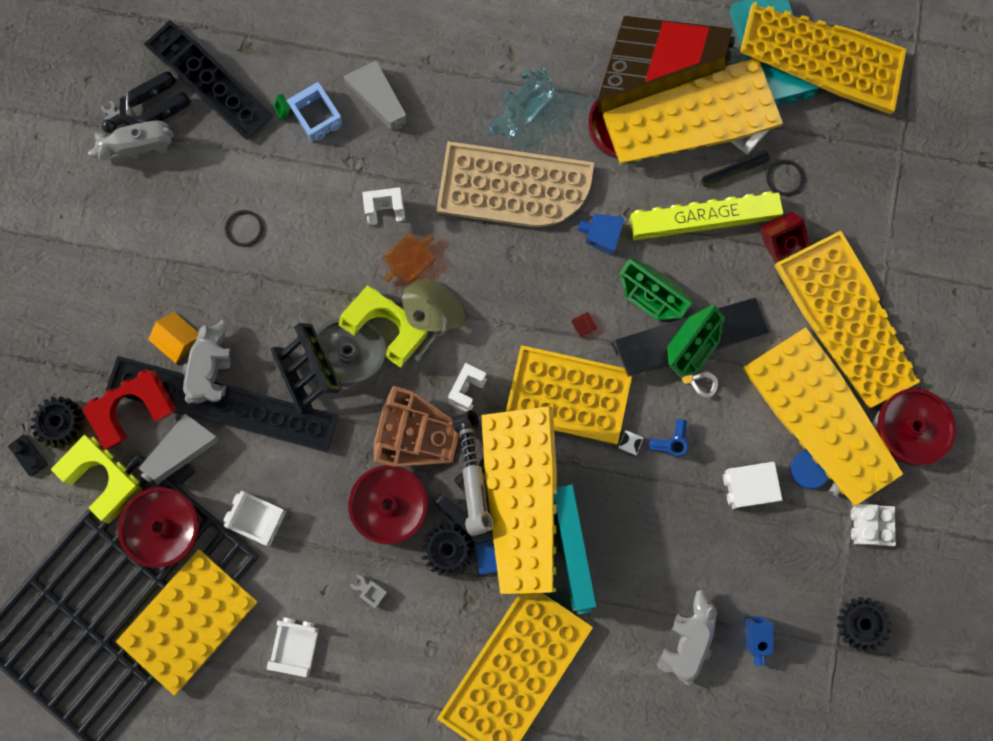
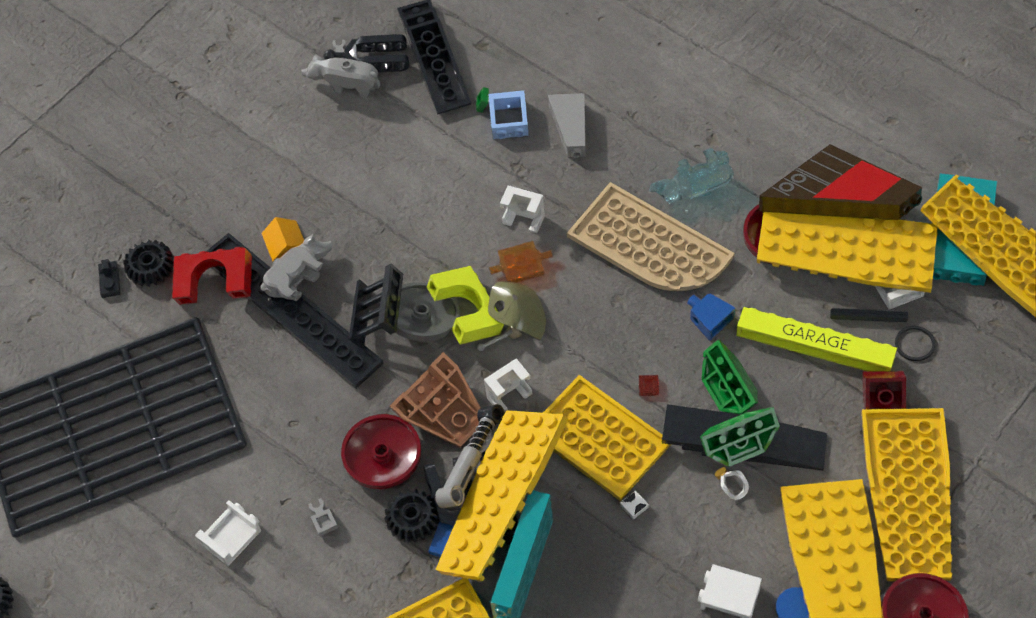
camera: 35 degrees right, 20 degrees down
(120, 487) = (166, 332): neon yellow arch -> none
(158, 527) = (177, 377): dark red dish -> none
(178, 448) = (230, 326): light grey slope -> none
(183, 473) = (224, 347): black tile -> none
(186, 622) = (153, 467): yellow plate -> none
(241, 212) = (393, 168): black piece -> none
(254, 518) = (261, 412): white panel -> none
(679, 437) = (681, 519): blue axle -> none

